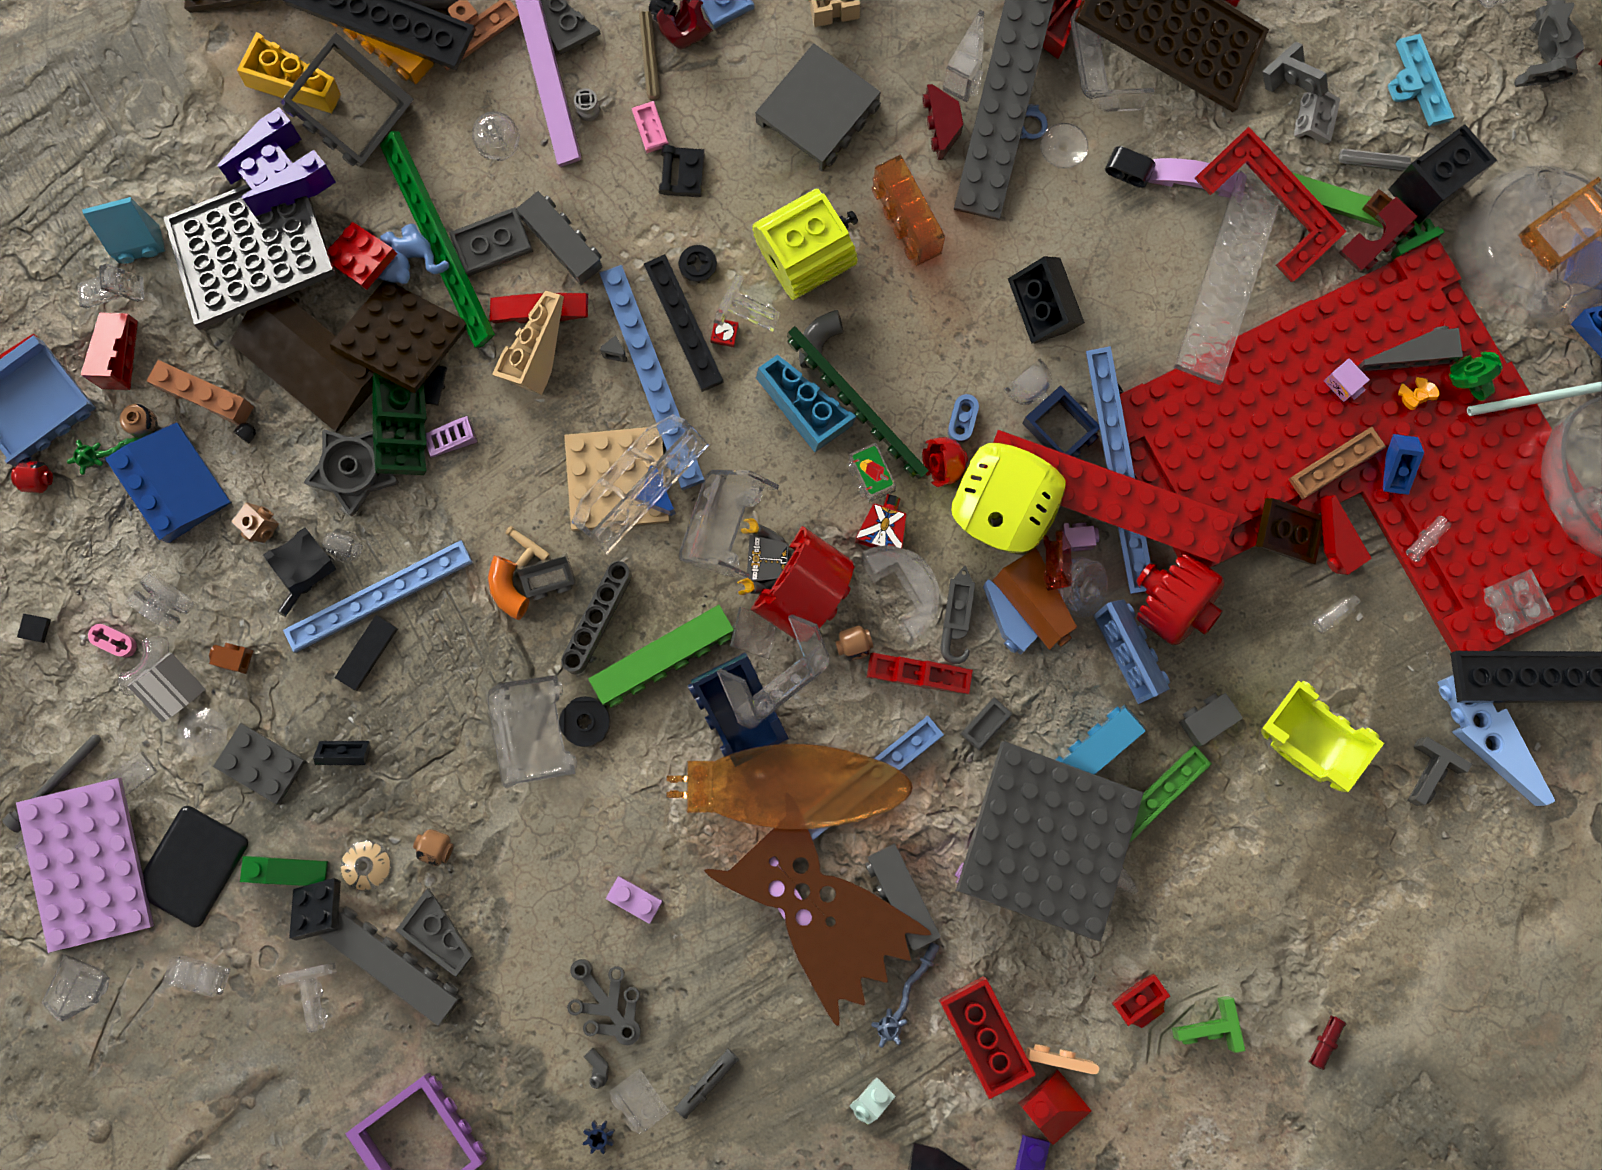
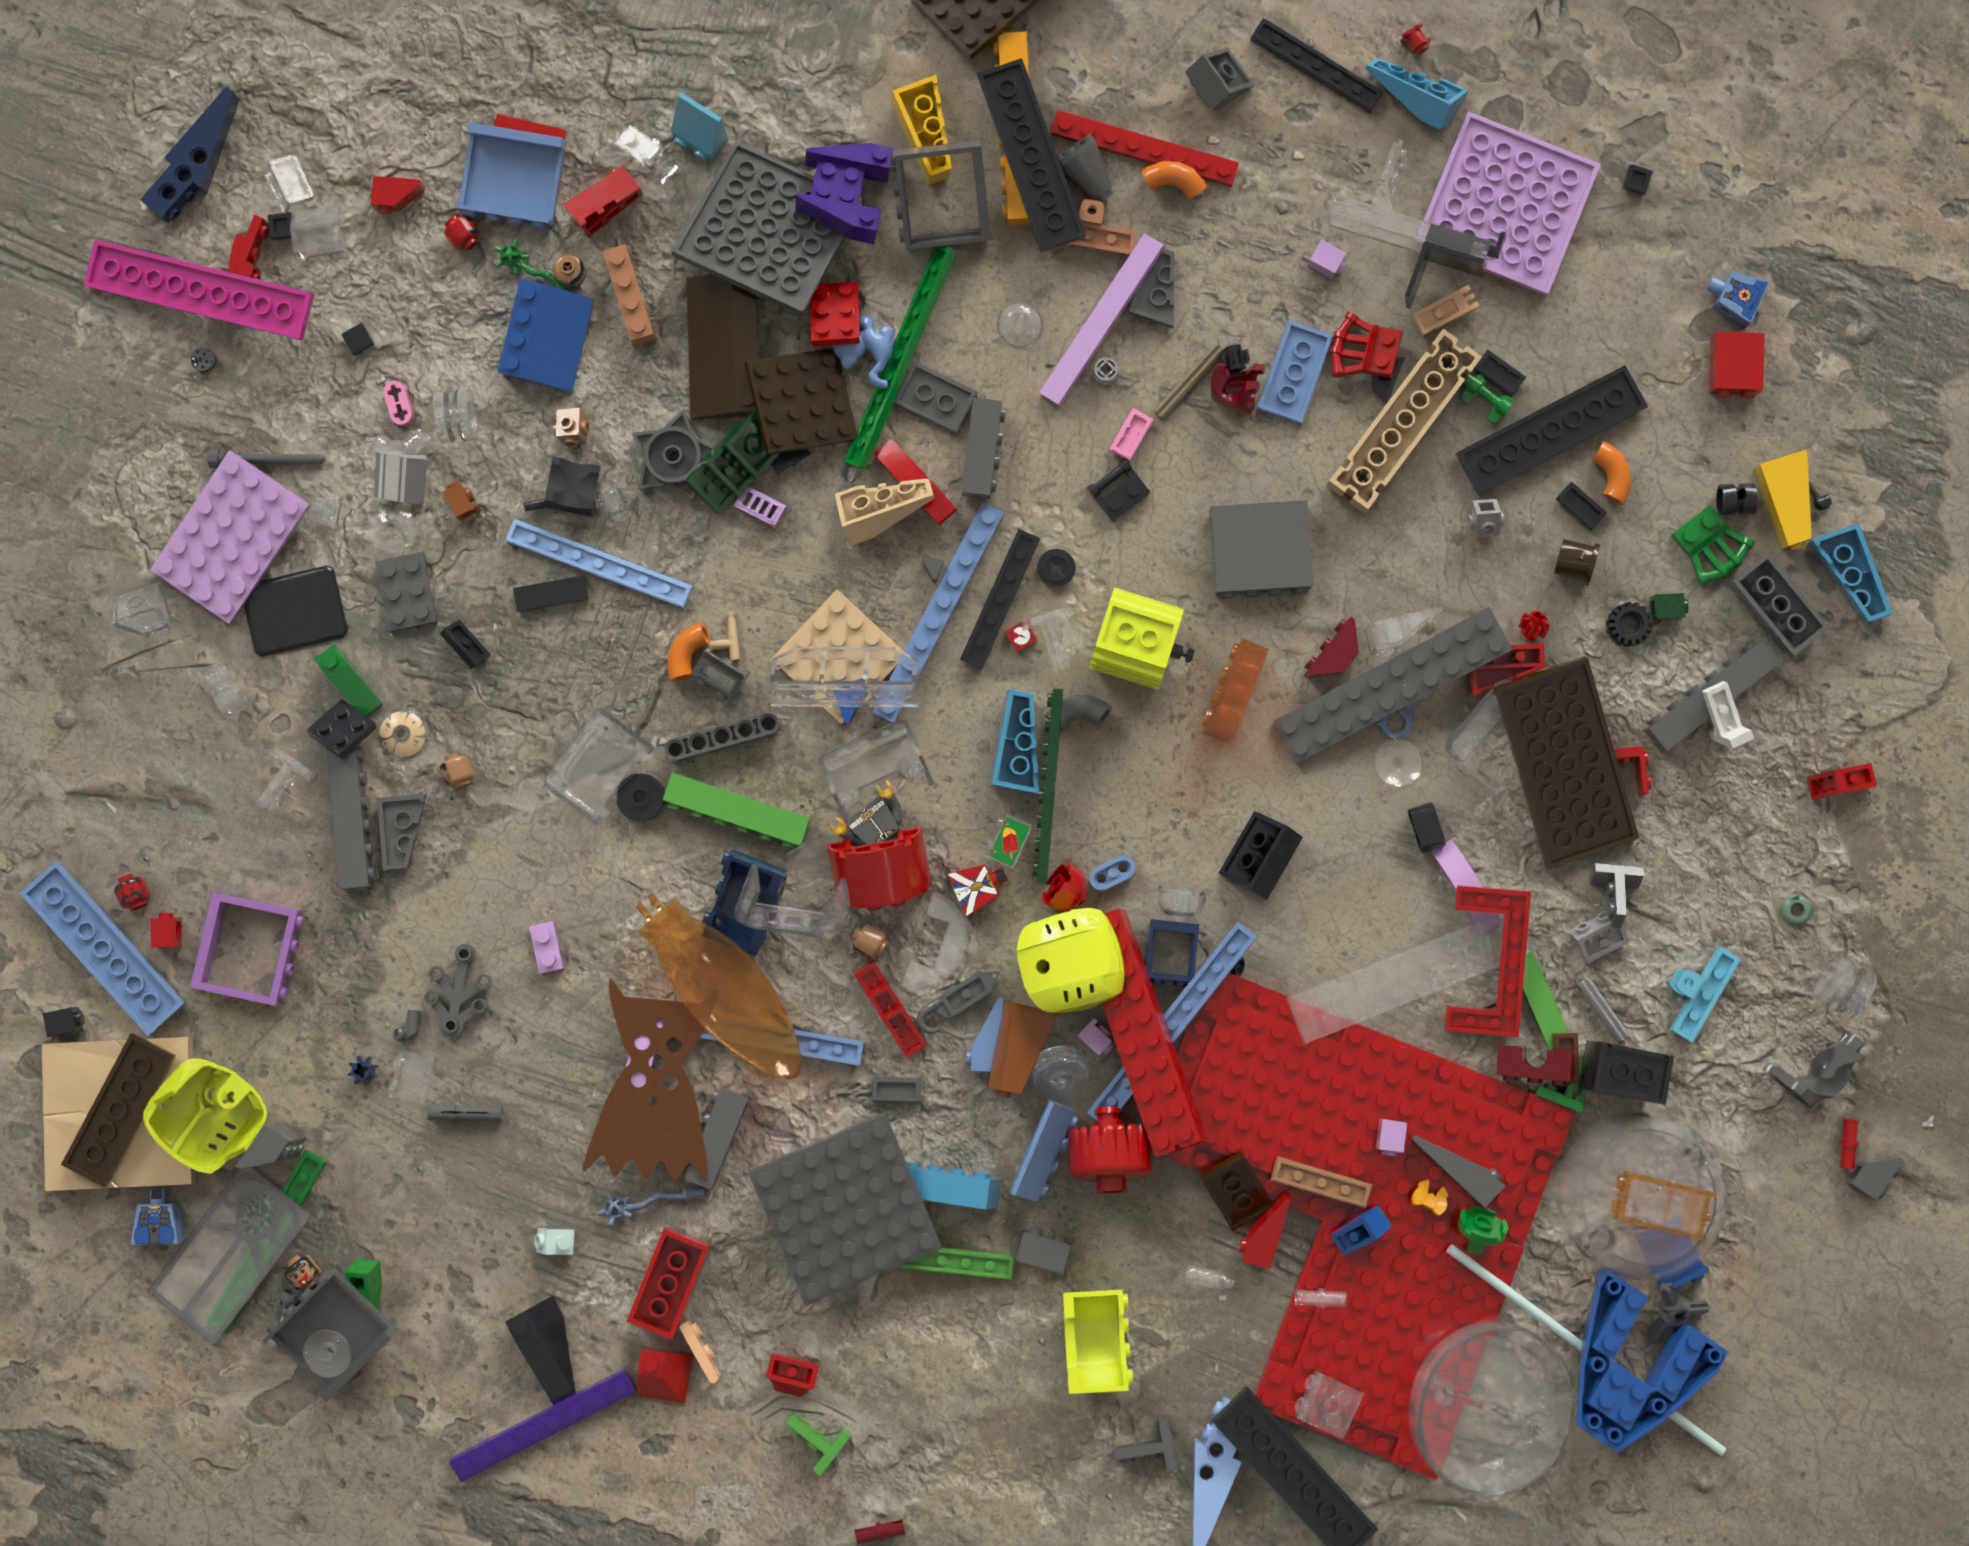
camera: 50 degrees right, 5 degrees up
(245, 432) = (631, 354): black hinge -> none
(1058, 562) = (1057, 1039): clear red hinge -> none

